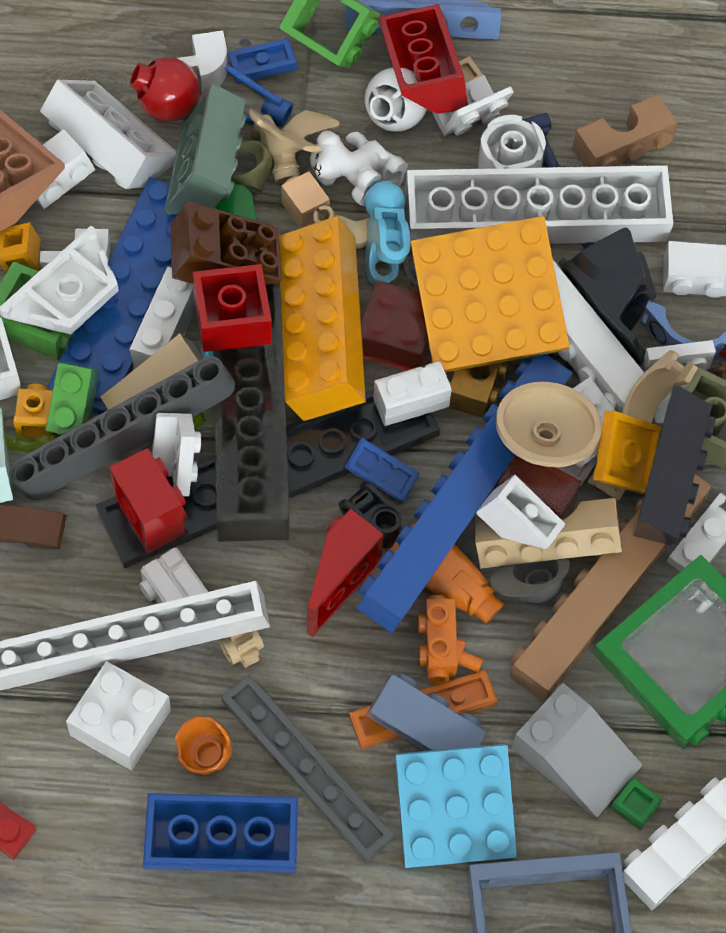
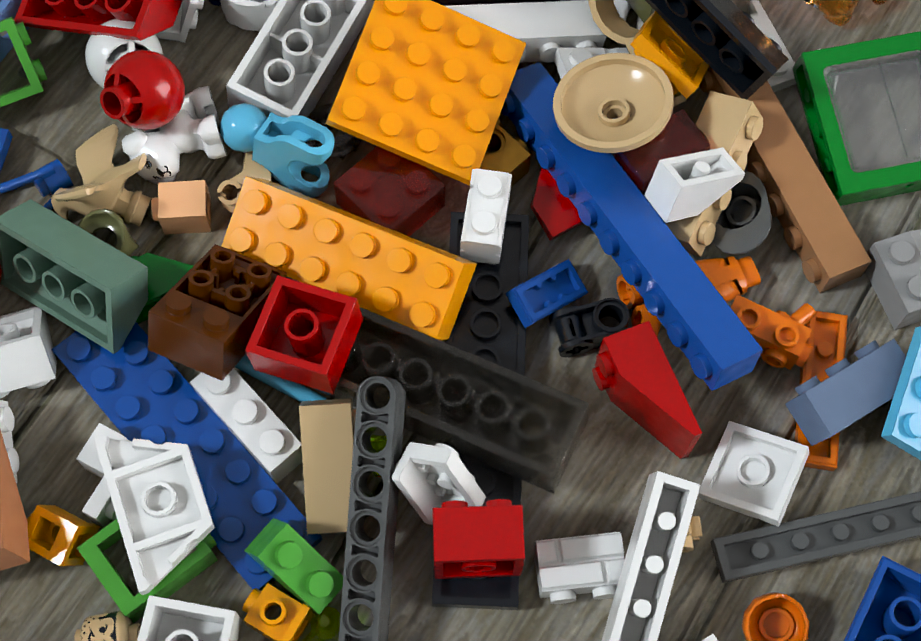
camera: 60 degrees left, 5 degrees up
(318, 682) = (754, 473): none -> white hinge
(363, 118) = (143, 90): none -> red brick
(453, 441) = (551, 208): none -> red slope

